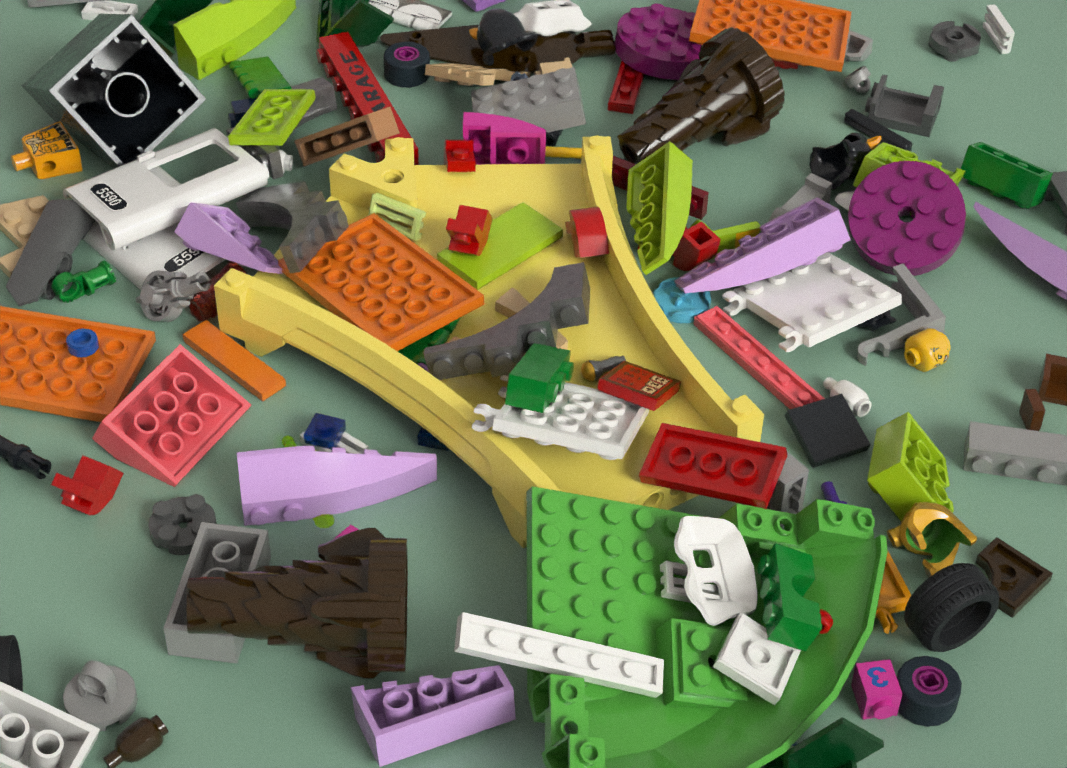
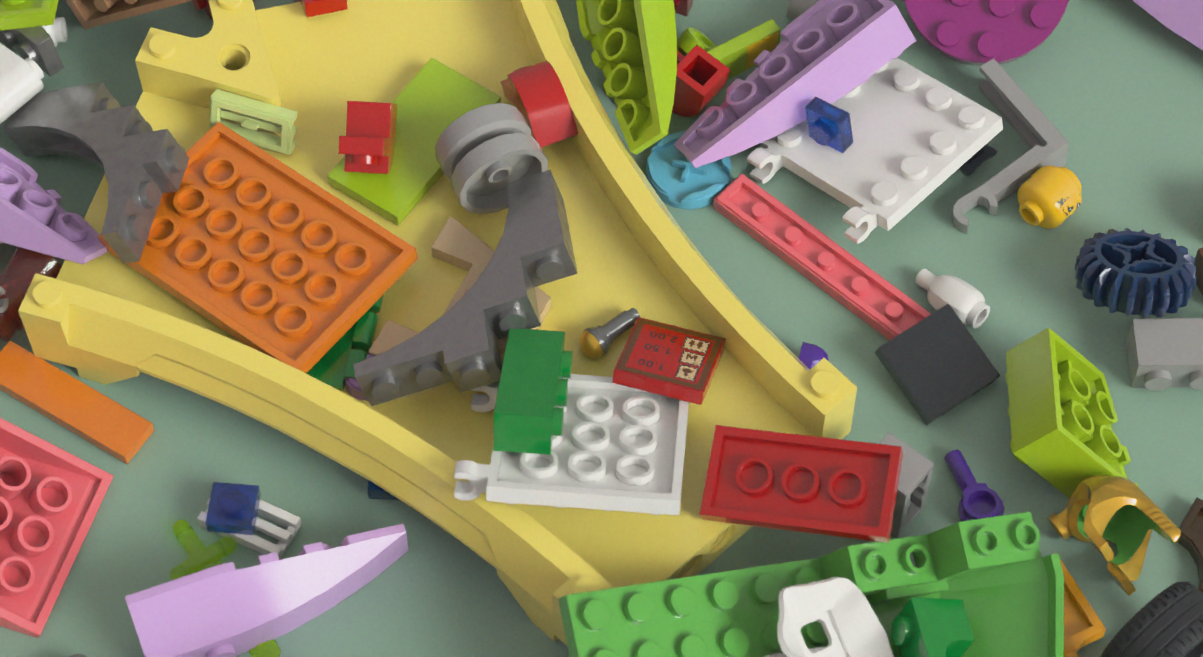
camera: 10 degrees left, 15 degrees up
(542, 246) = (486, 153): none -> light grey wheel
(781, 281) = (829, 125): none -> clear blue plate
(977, 396) = (1135, 273): none -> dark blue gear

